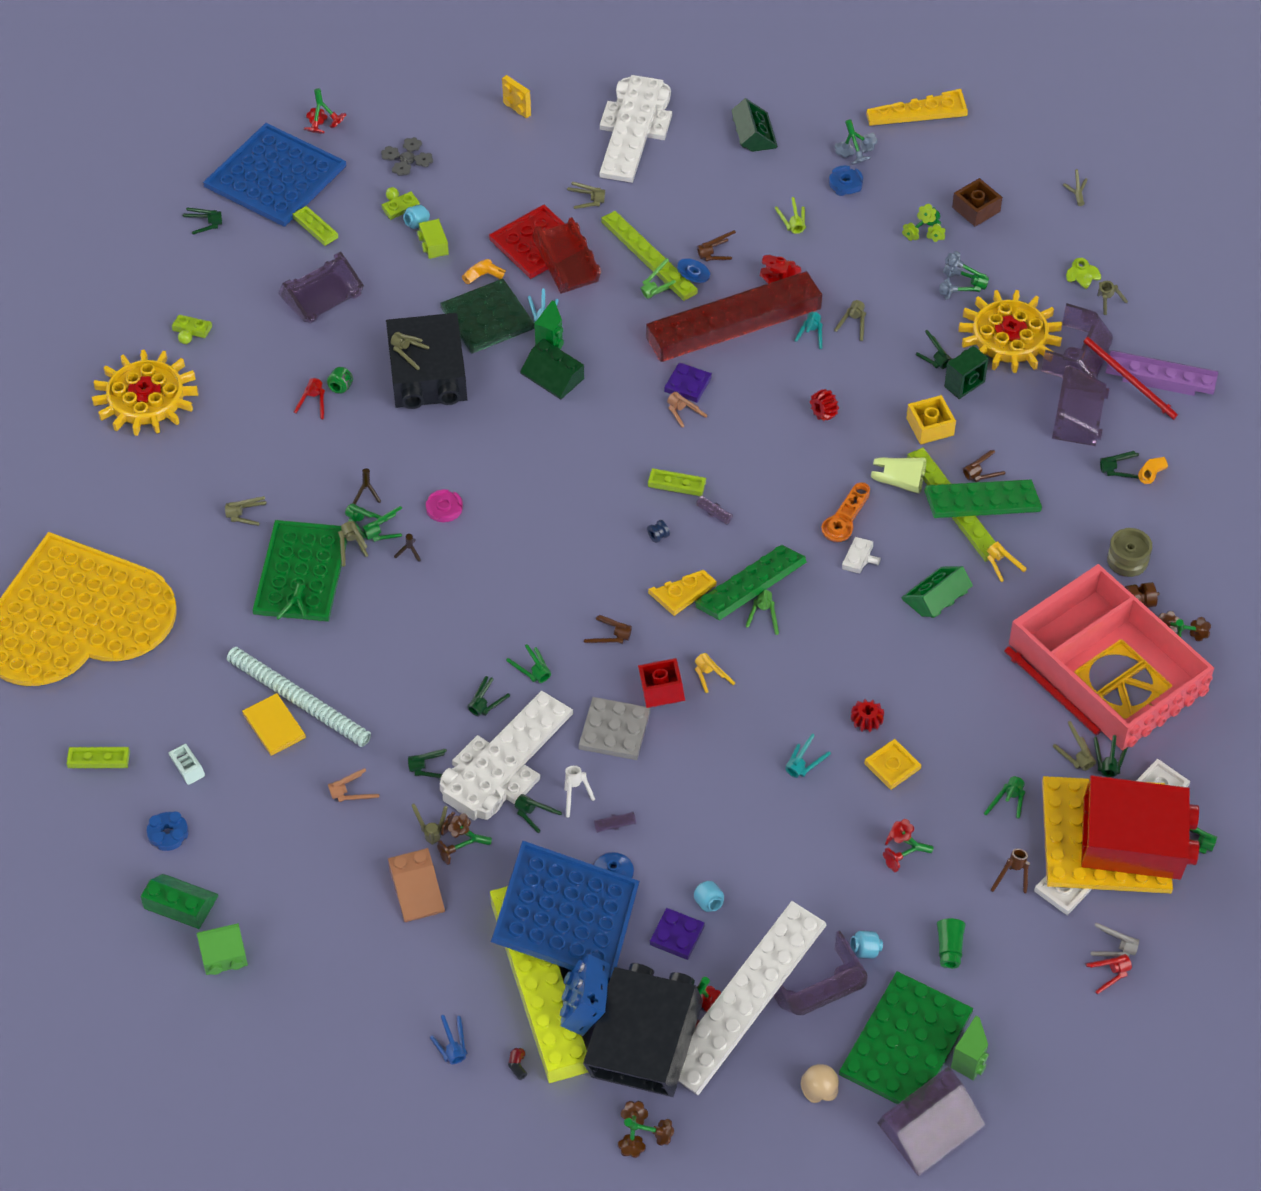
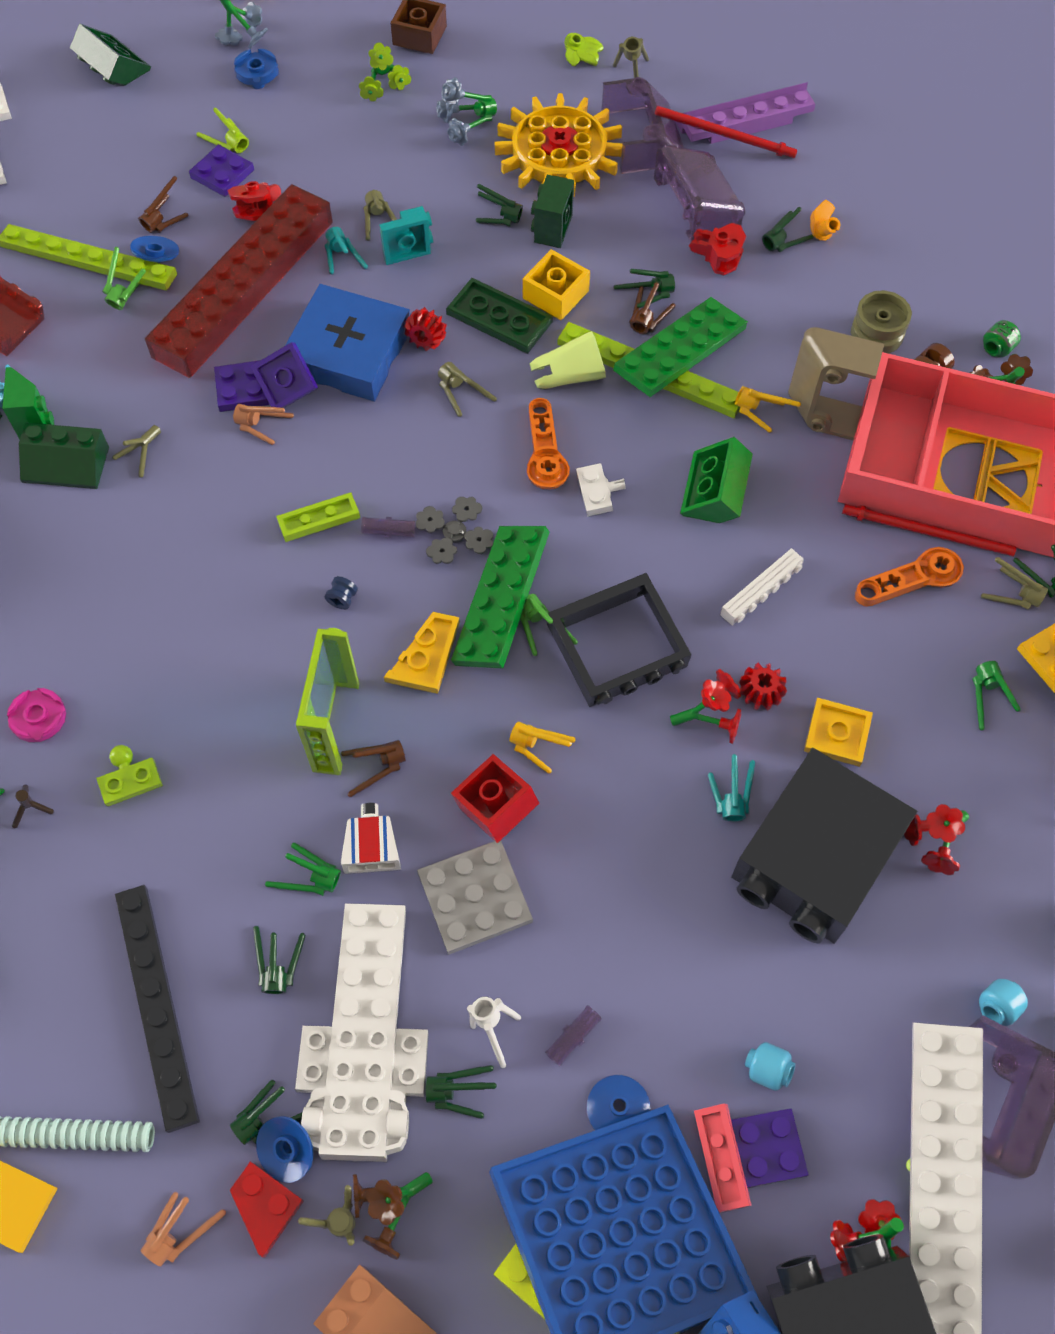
camera: 35 degrees left, 10 degrees up
(398, 804) = (264, 1206): none -> red wing
(409, 684) = (157, 1010): none -> black plate
(427, 782) = (284, 1149): none -> blue dish
(472, 565) = (129, 779): none -> lime plate
(576, 669) = (369, 843): none -> torso
(601, 573) = (329, 667): none -> lime panel
(605, 385) = (143, 441): none -> olive plant
(648, 920) = (722, 1158): none -> coral plate
(714, 389) = (284, 376): none -> dark purple plate
(752, 533) = (454, 530): none -> dark grey plant
(769, 387) = (350, 340): none -> blue tile
(773, 239) = (221, 170): none -> dark purple plate
(802, 617) = (602, 602): none -> black window
(821, 444) = (453, 377): none -> olive plant
(826, 810) = (821, 847): none -> black brick
(827, 699) = (717, 697): none -> red plant
(856, 341) = (407, 236): none -> teal plate
(882, 421) = (499, 315): none -> dark green tile
(915, 664) = (761, 587): none -> white piece
(1004, 453) = (665, 280): none -> dark green plant
(1016, 709) = (913, 576): none -> orange beam
(1050, 547) = (830, 358): none -> dark tan windscreen
(1063, 451) = (720, 247): none -> red hinge
(1208, 605) = (1001, 338): none -> green head

